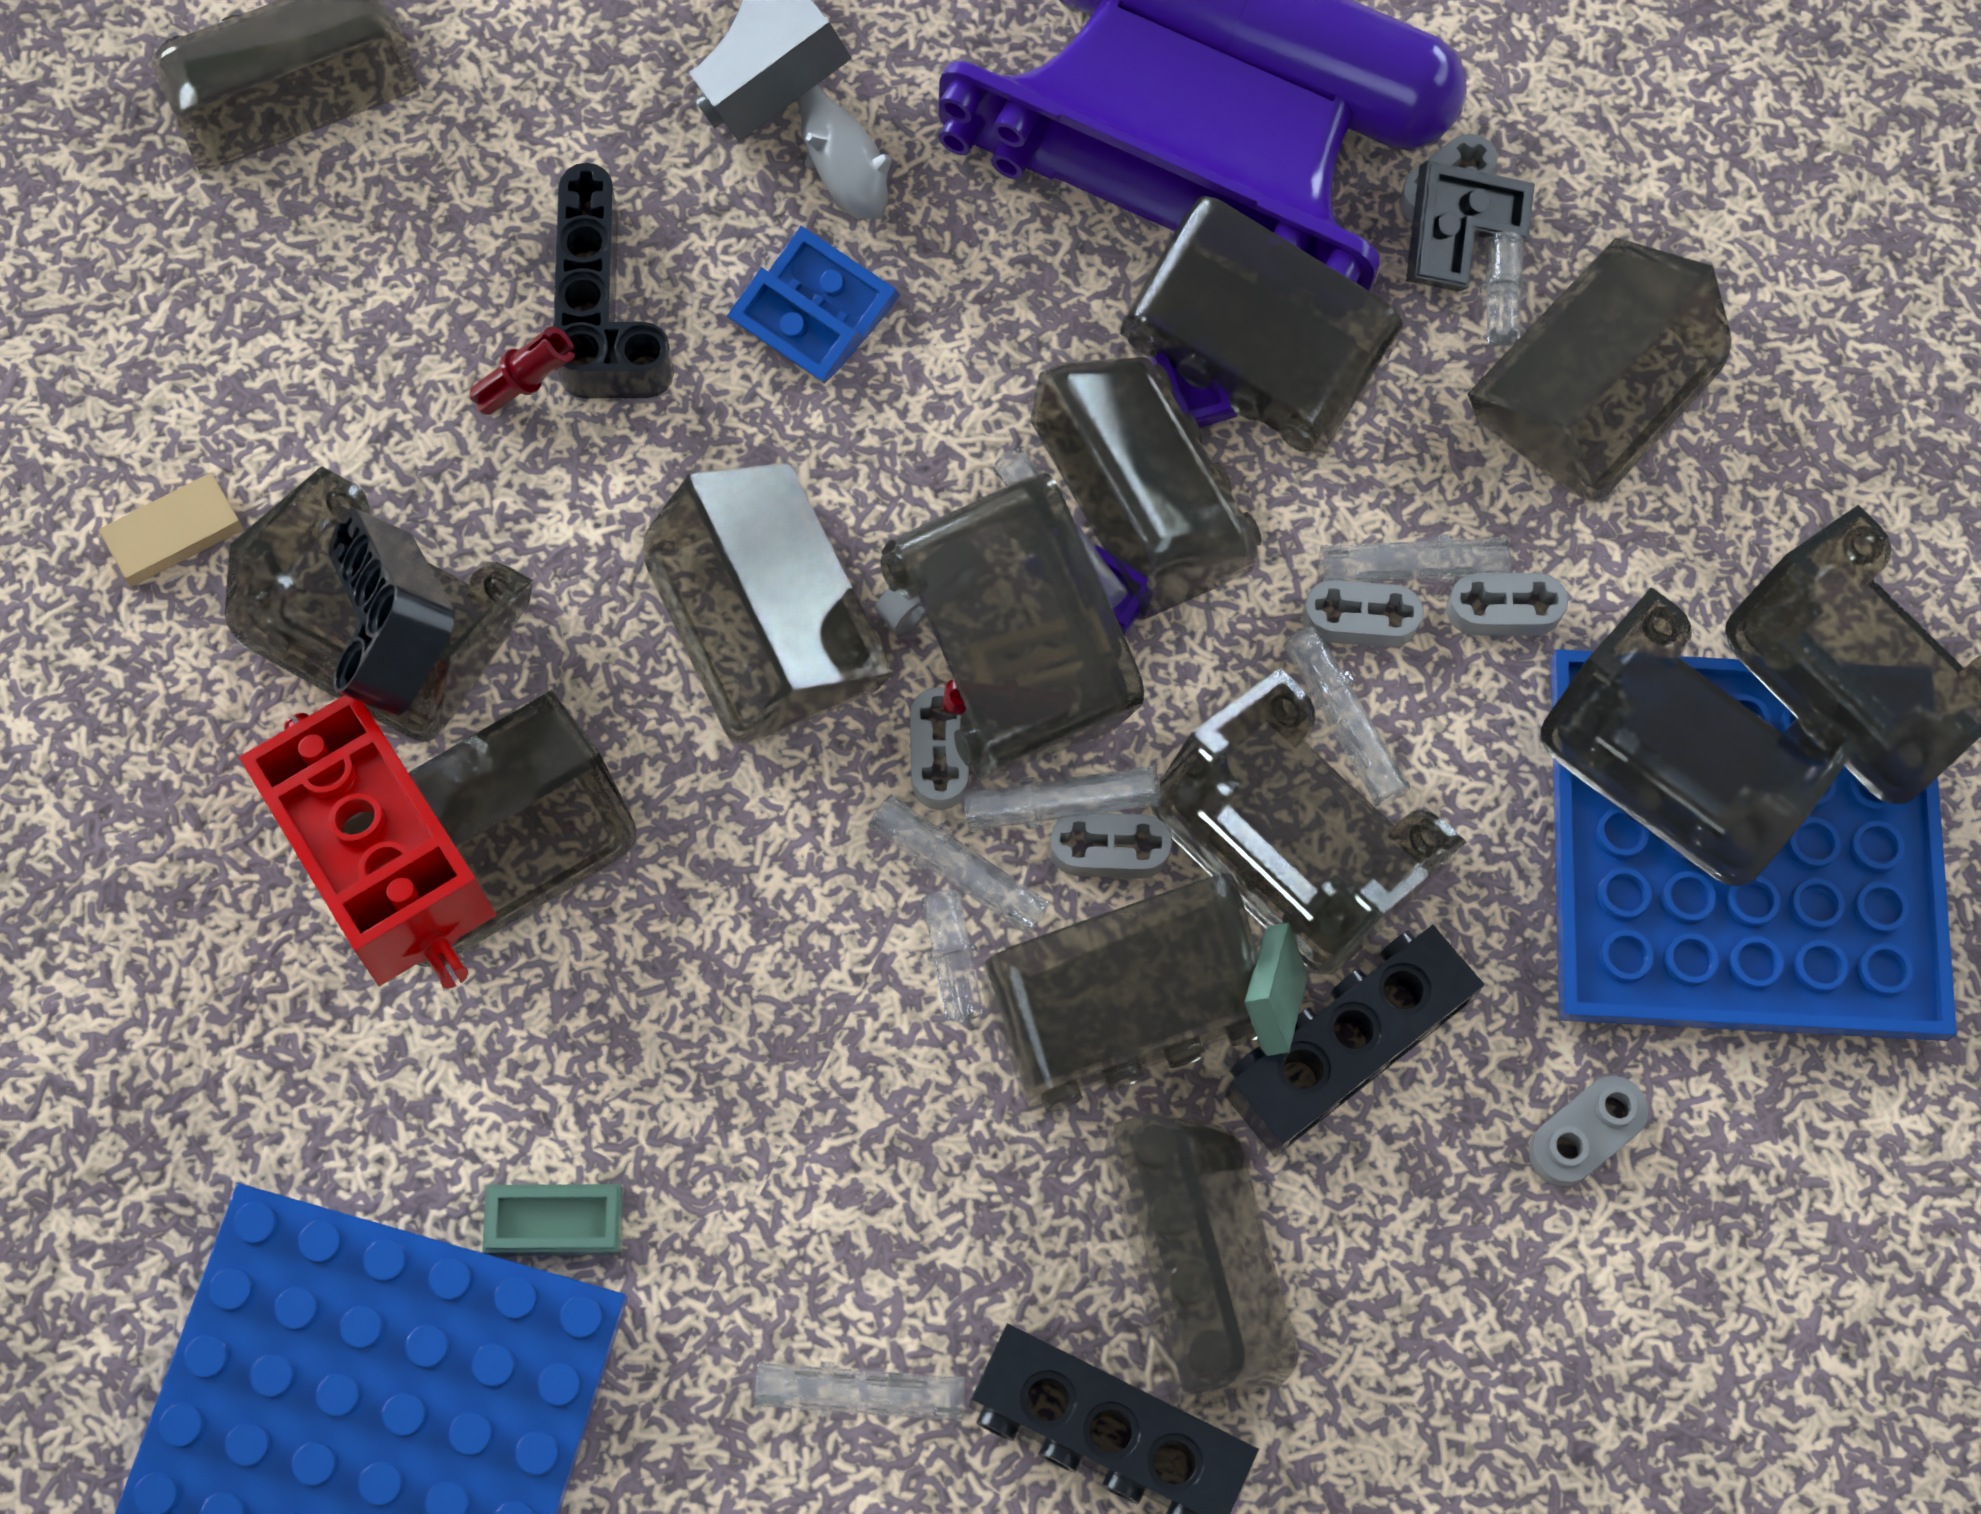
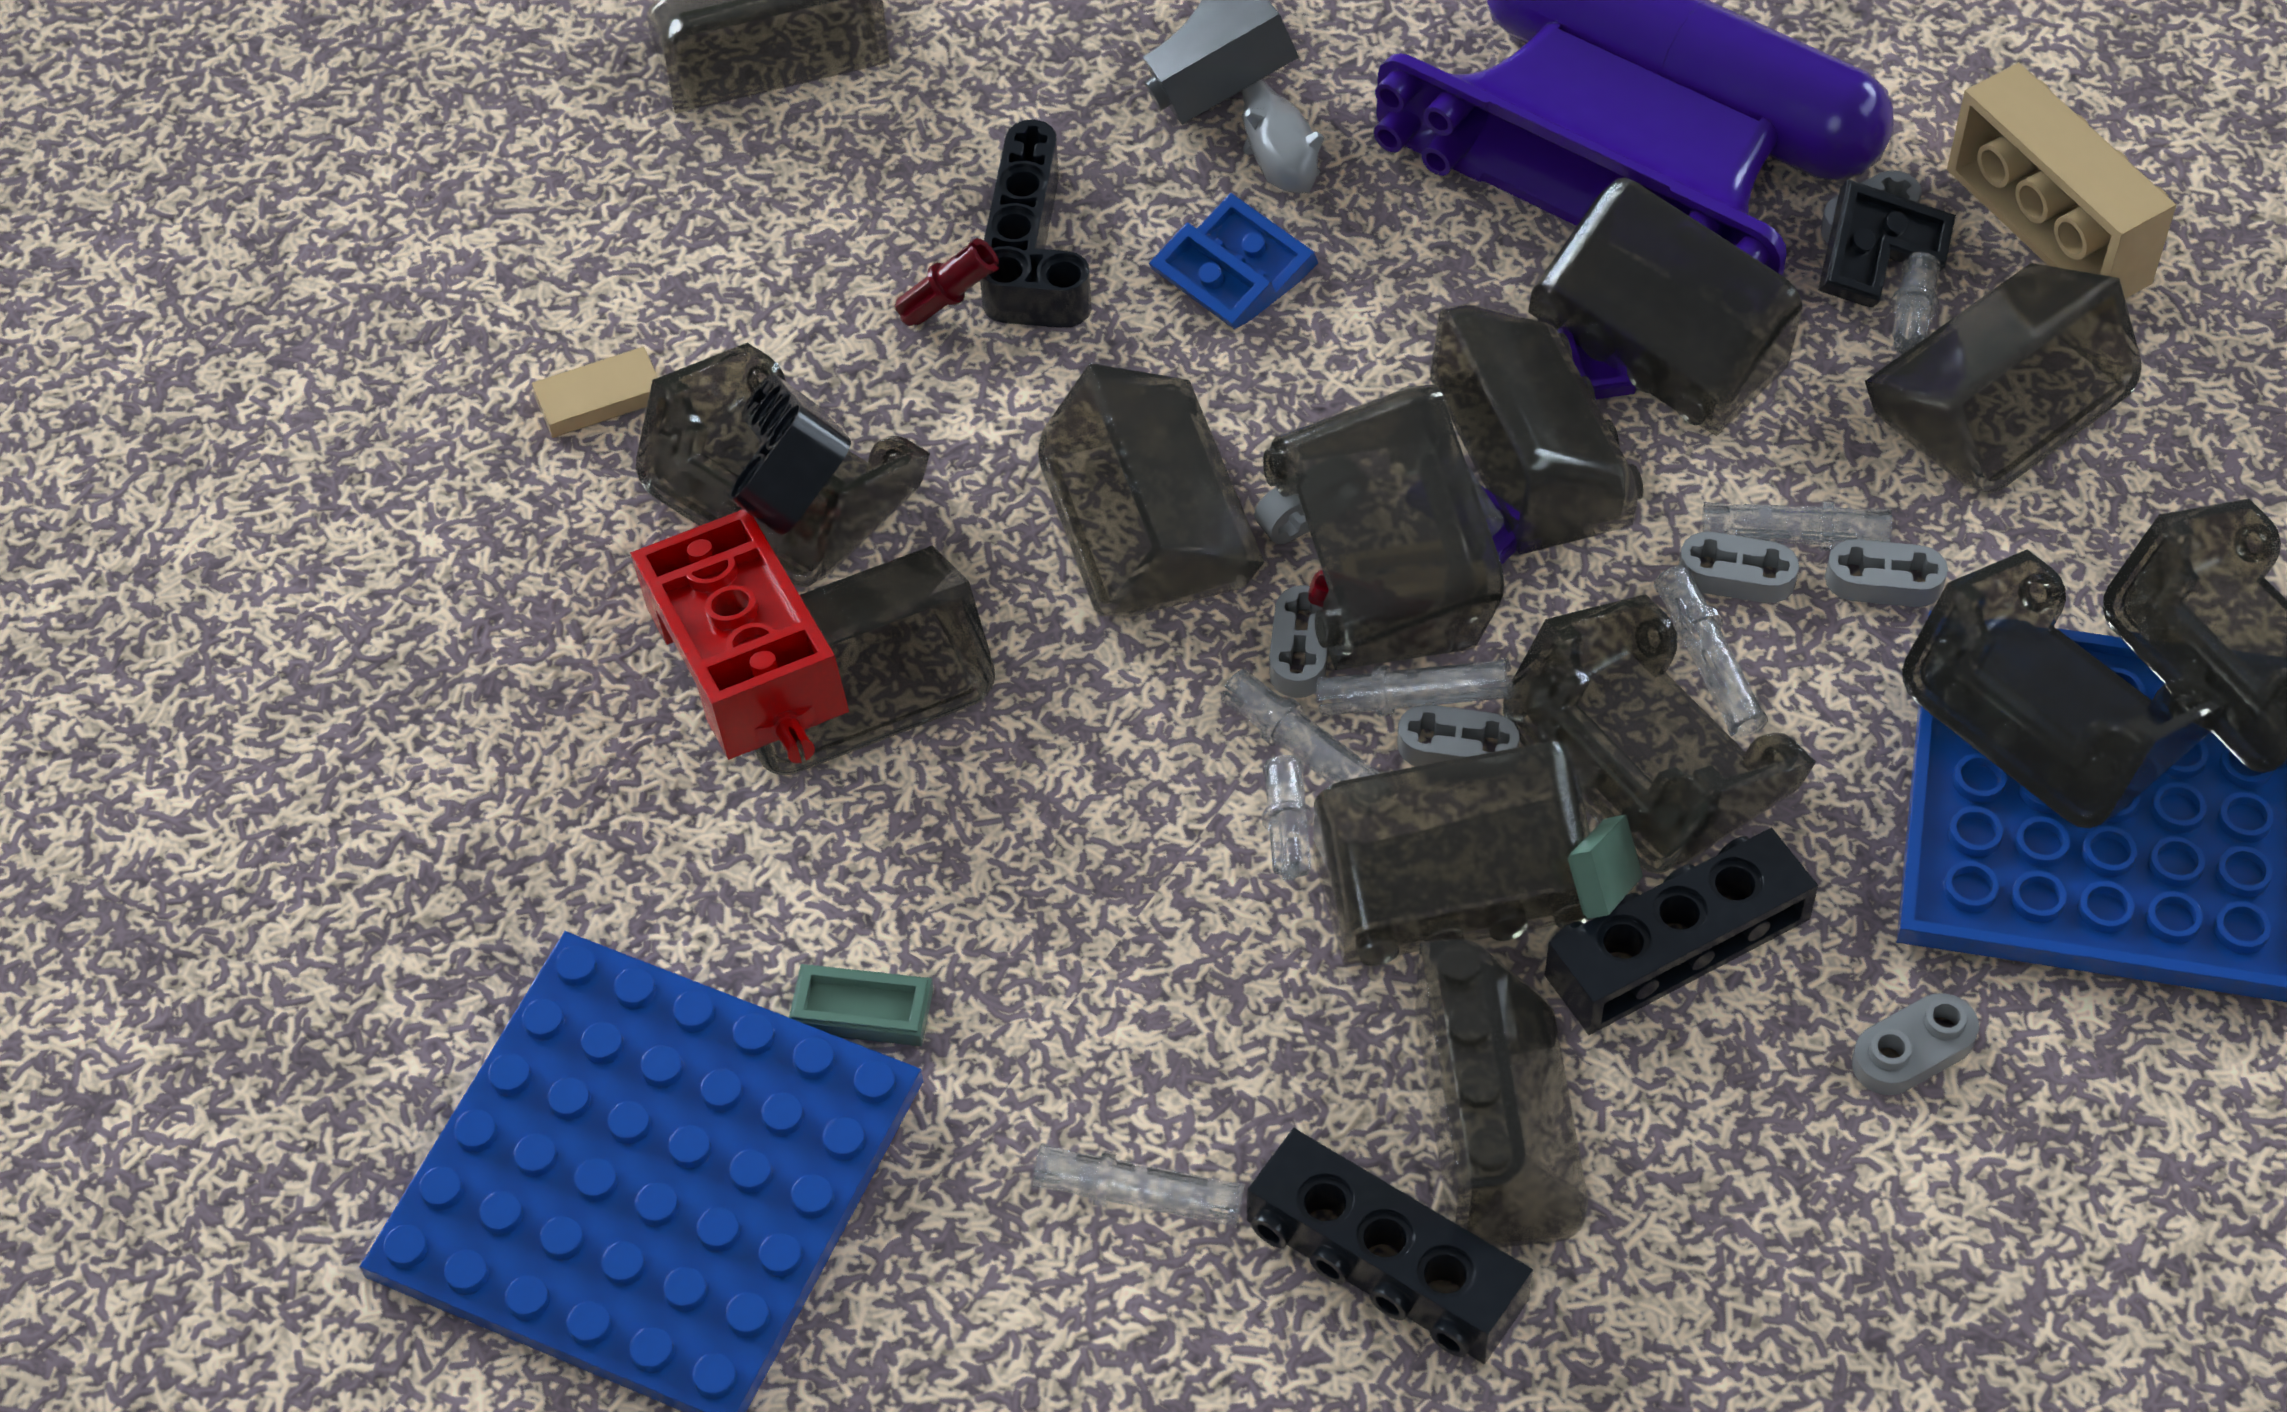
camera: 15 degrees right, 15 degrees down
(1636, 143) = (2058, 181): none -> tan brick

